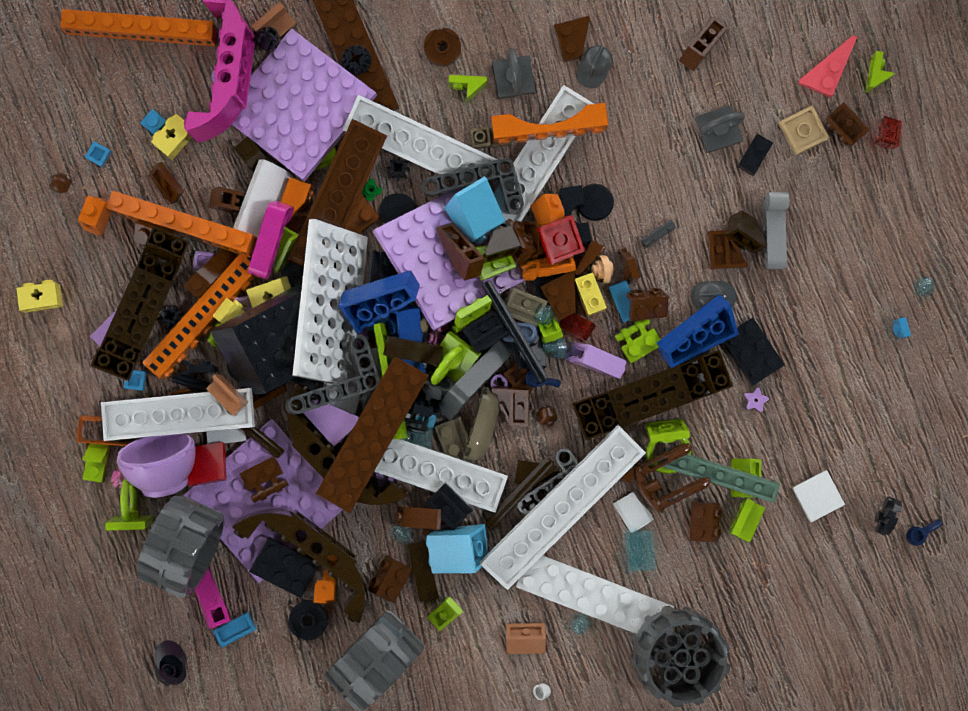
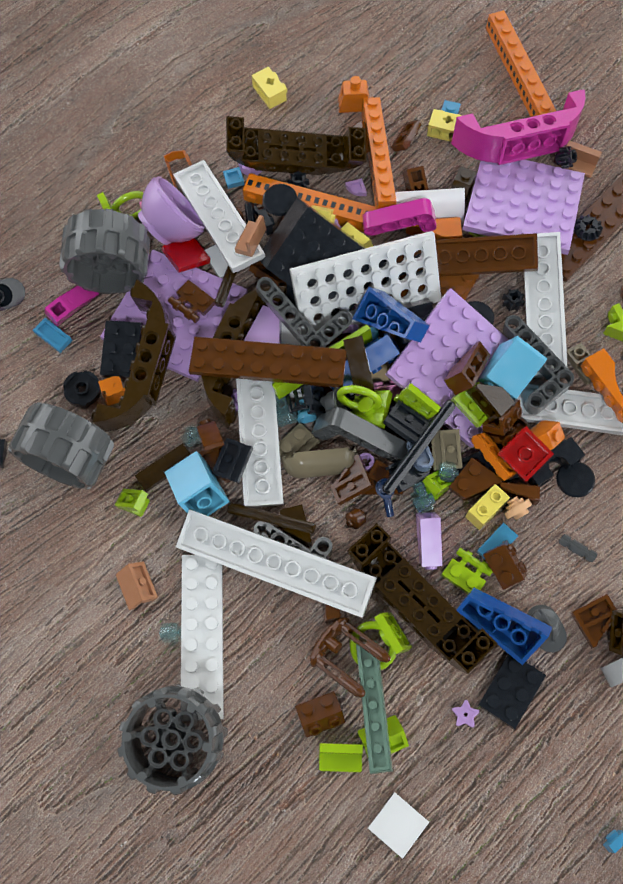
camera: 70 degrees right, 15 degrees down
(60, 183) = (367, 69): reddish brown piece -> none
(96, 462) = (145, 177): lime slope -> none
(98, 154) = (403, 82): dark azure plate -> none
(188, 345) = (279, 199): none -> black piece
(209, 273) = (346, 190): reddish brown slope -> none
(286, 244) = (395, 235): lime panel -> none
(376, 190) = (479, 289): green plate -> none
(389, 579) = (145, 442): reddish brown bracket -> none
(542, 691) = (90, 621): white hinge -> none
(577, 327) = (451, 509): clear red slope -> none
(630, 269) = (531, 531): reddish brown wing -> none
(633, 511) = (300, 638): white piece -> none
(640, 551) = (264, 659): clear light blue plate -> none

